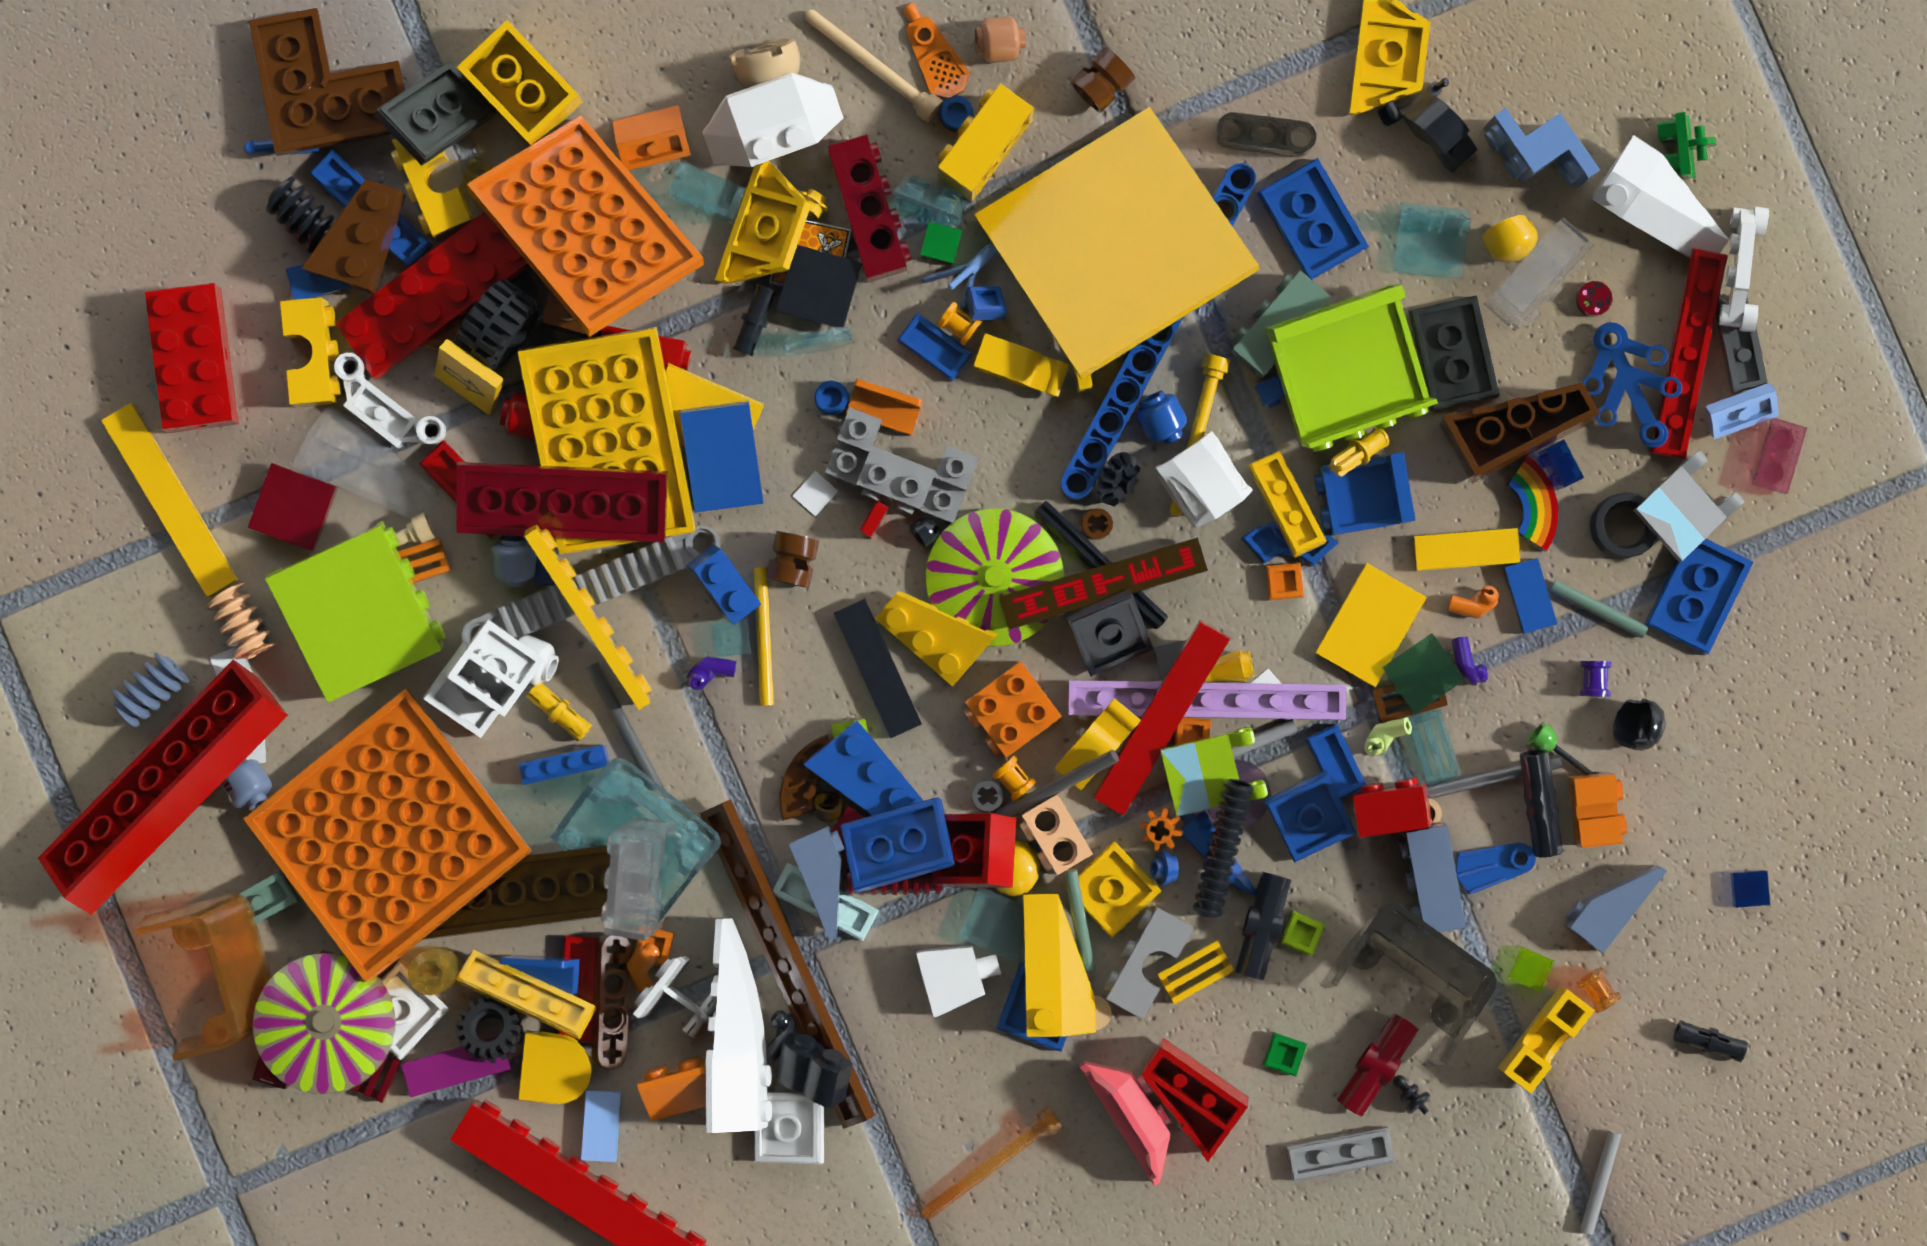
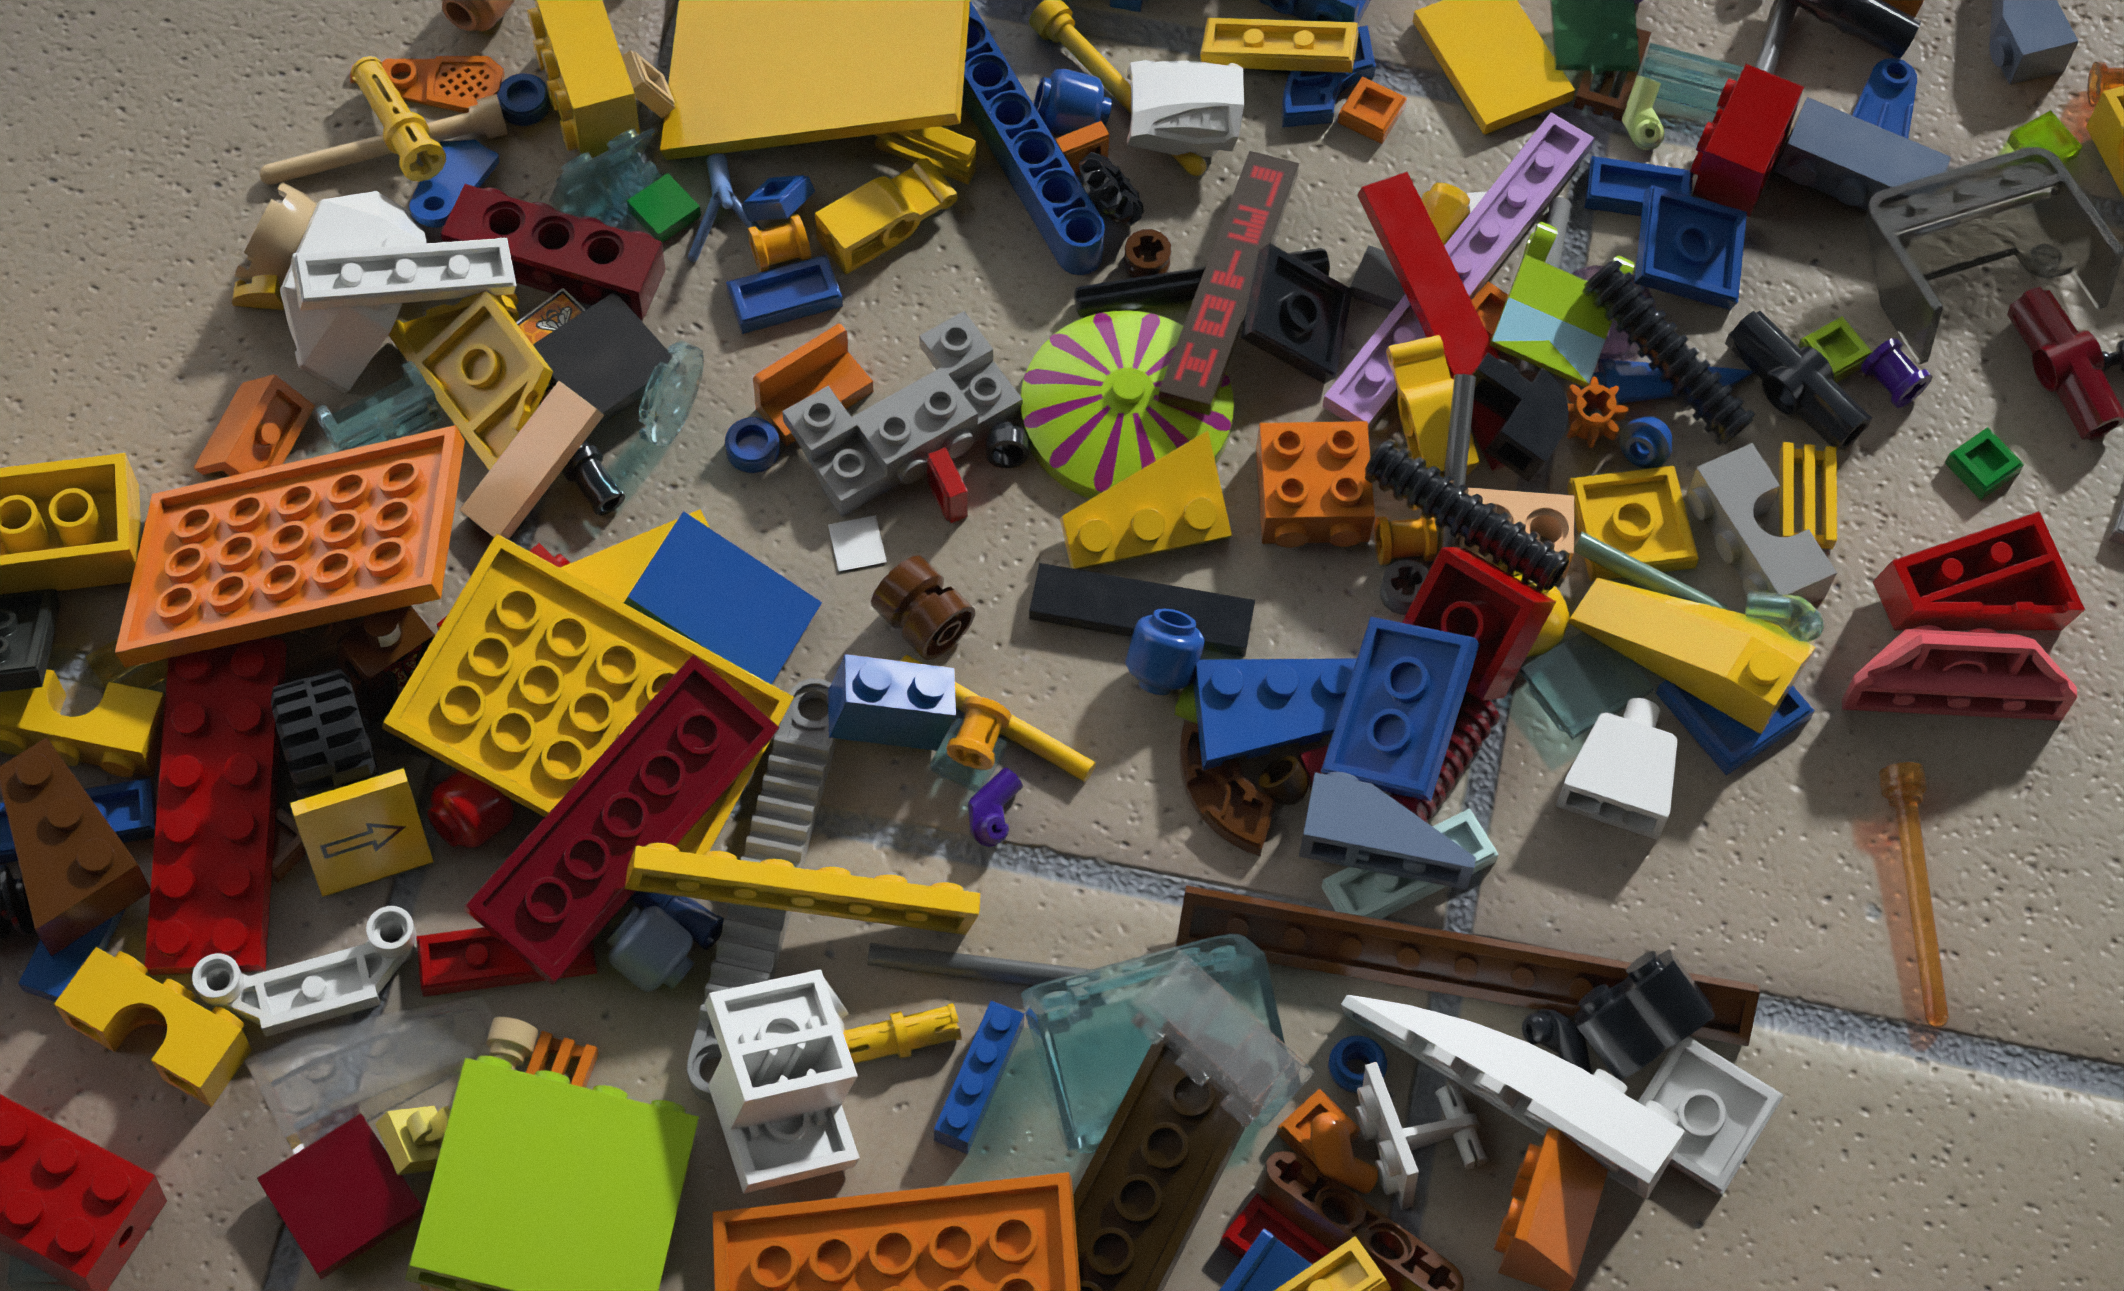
camera: 60 degrees left, 25 degrees down
(343, 521) = (413, 1137): none -> light yellow tile
(691, 950) = (1354, 1048): none -> blue plate
(729, 74) = (261, 293): none -> yellow tile
(731, 298) = (532, 462): none -> light nougat tile
(738, 639) = (978, 732): none -> light orange bush
(779, 154) = (402, 273): none -> white tile
(853, 701) = (1164, 651): none -> blue head
(874, 117) = (465, 164): none -> blue piece
(881, 76) = (403, 130): none -> yellow pin
(1004, 178) = (649, 84): none -> tan tile
(1032, 809) = (1466, 516): none -> black piece
(1101, 1015) = (1790, 612): none -> clear light blue arm
(1124, 803) = (1532, 412): none -> black brick
(1135, 444) = (1082, 142): none -> orange tile
(1306, 975) = (1896, 372): none -> dark purple bush

